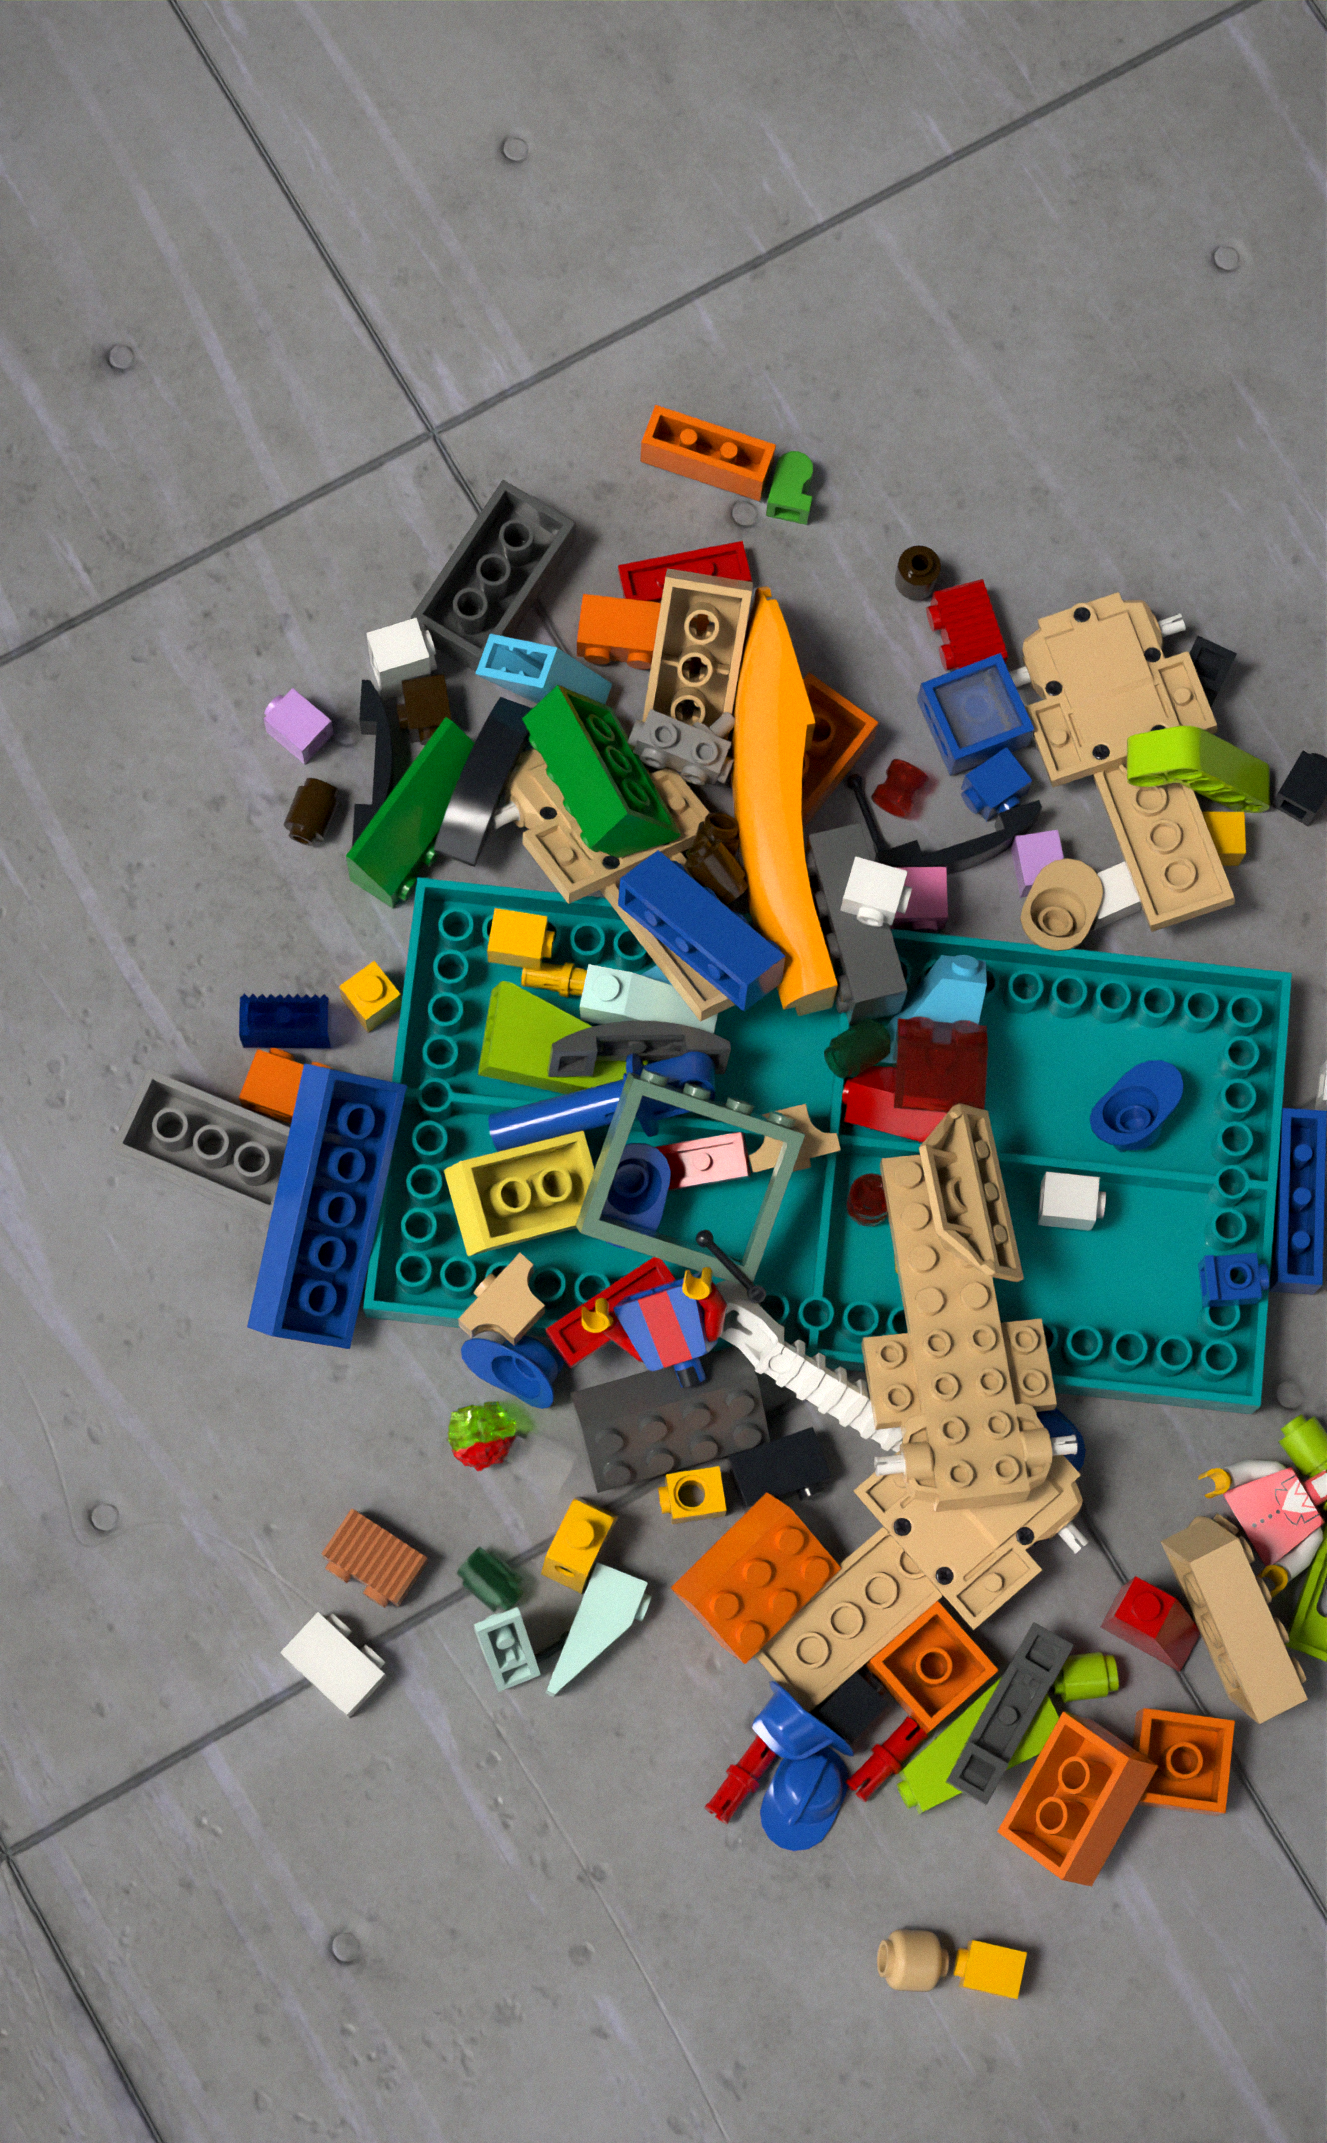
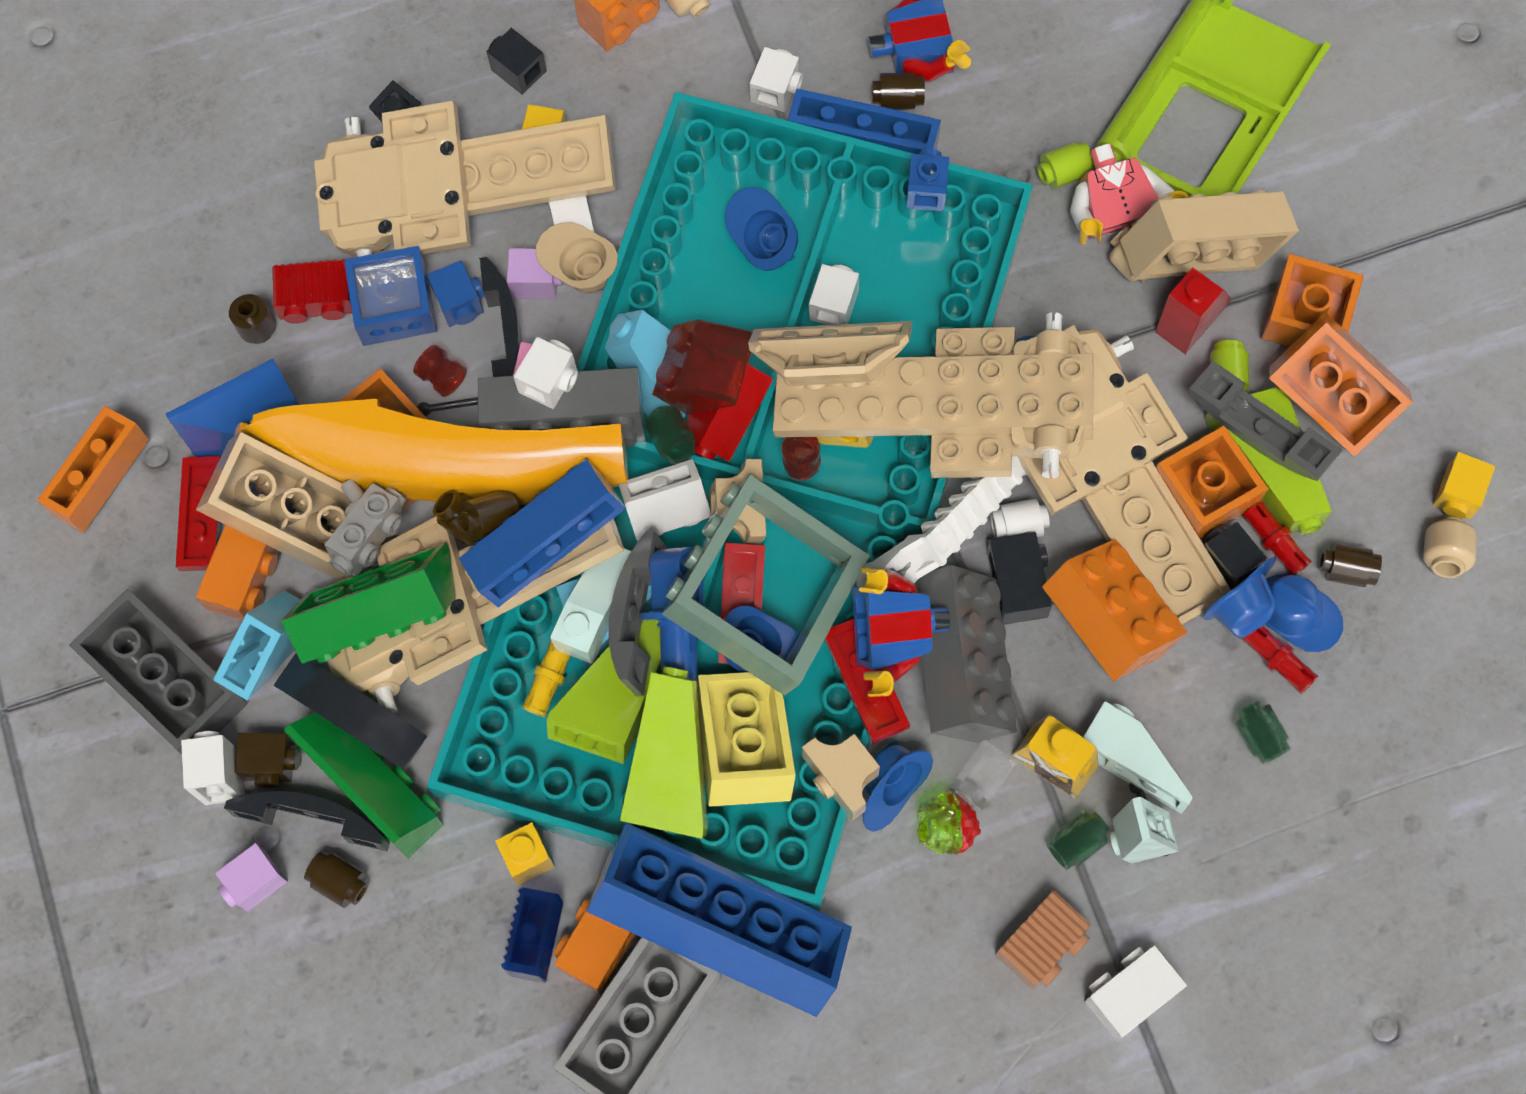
camera: 70 degrees left, 5 degrees down
(481, 1115) = (667, 763): none -> lime slope
(519, 939) = (508, 701): yellow brick -> none
(650, 1768) = (1262, 732): none -> clear green brick
(711, 1485) = (1036, 637): yellow brick -> none
(755, 1292) = (874, 552): black hinge -> none
(783, 1059) = (665, 499): none -> white brick
(788, 488) = (145, 410): bright green leg -> none
(805, 599) = (212, 417): none -> blue slope
(847, 1458) = (1019, 519): none -> white brick
(868, 1846) = (1350, 565): none -> dark brown brick
(1200, 763) = (477, 123): lime beam -> none

